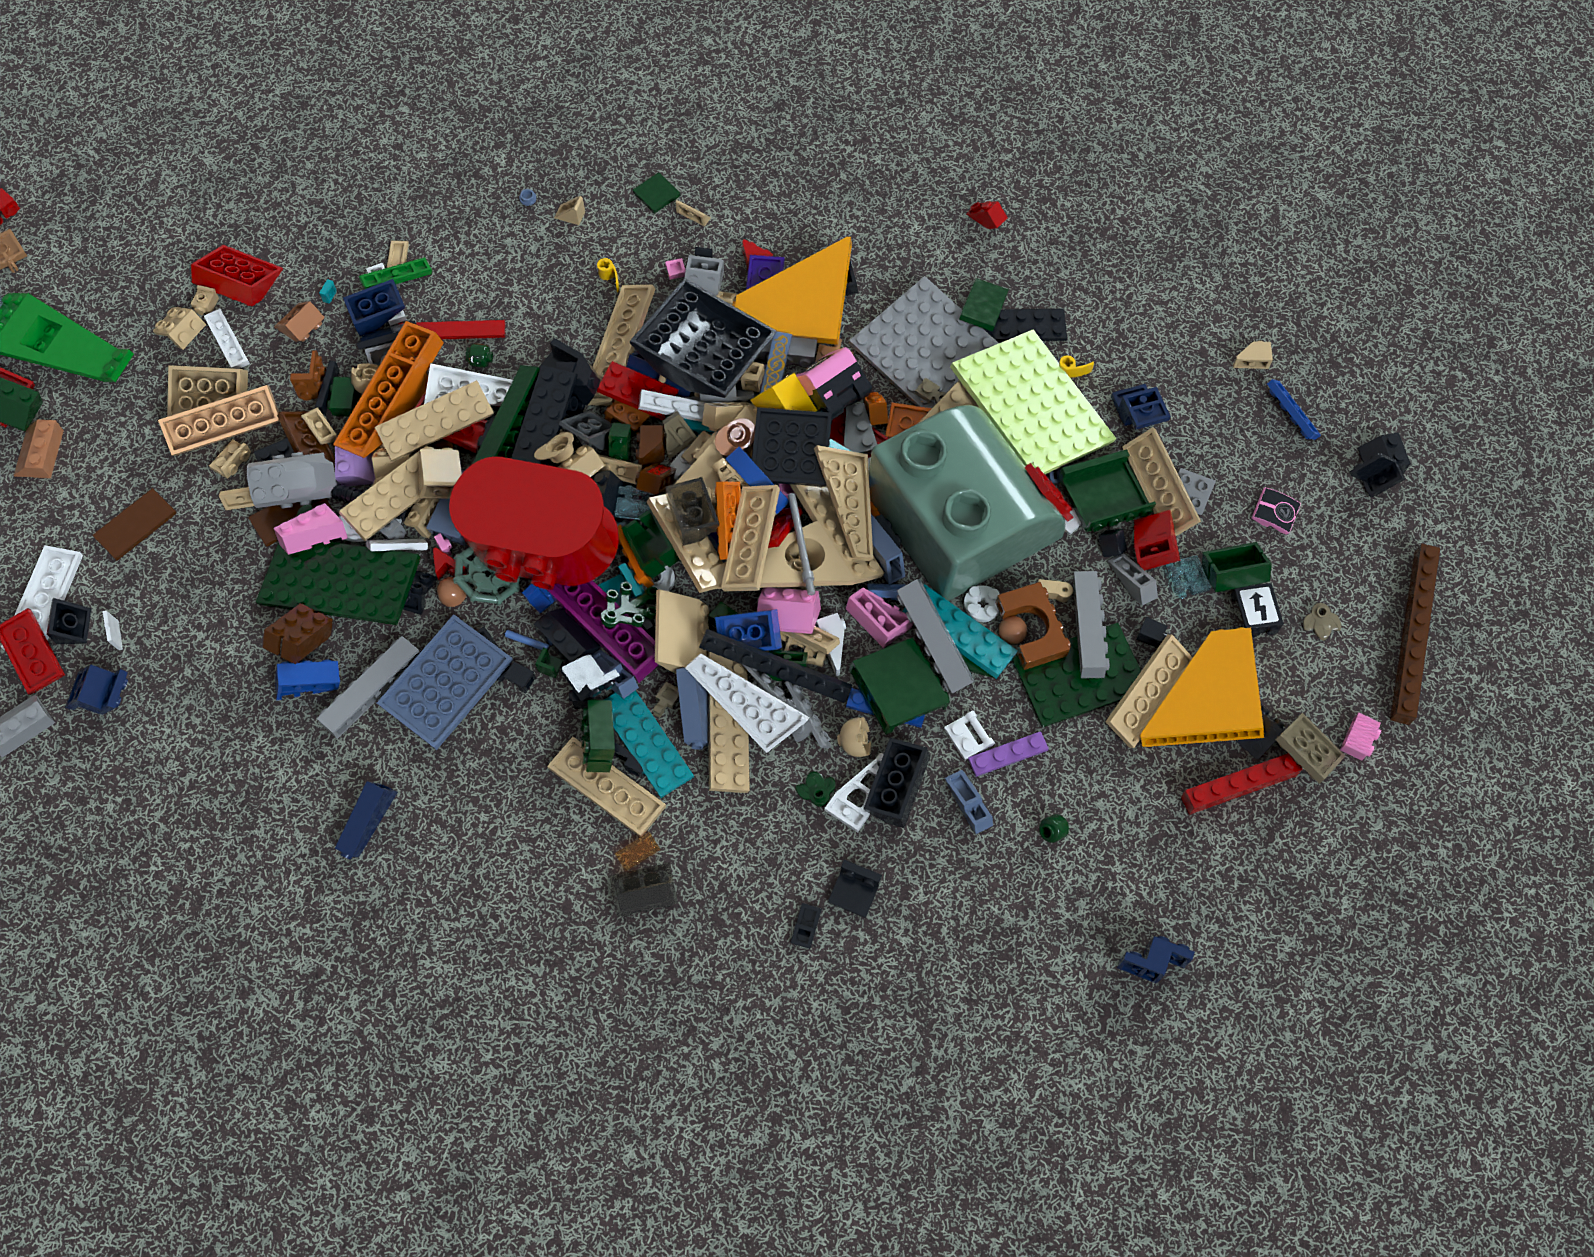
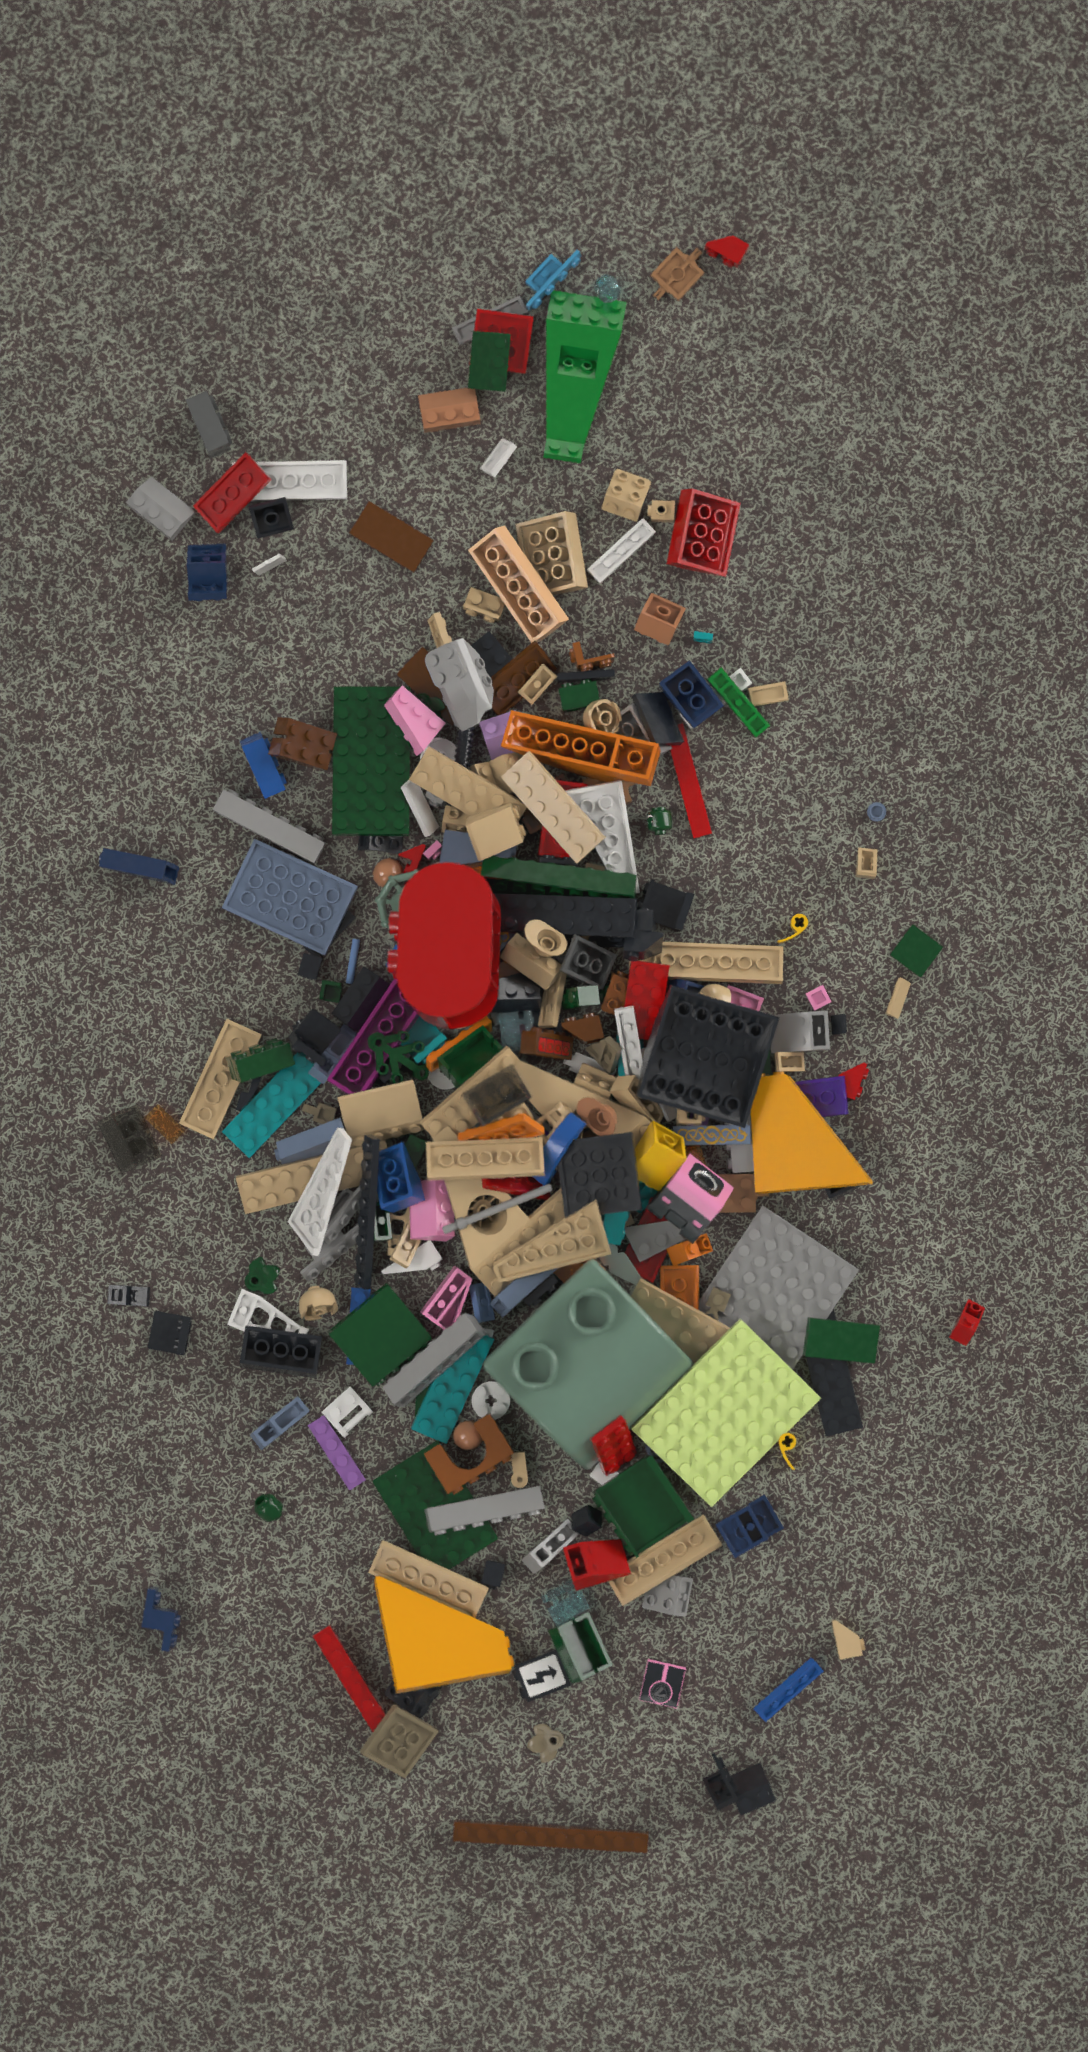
camera: 80 degrees right, 20 degrees up
(99, 418) = (498, 457): none -> white plate
(1361, 736) = (426, 1791): bright pink brick -> none

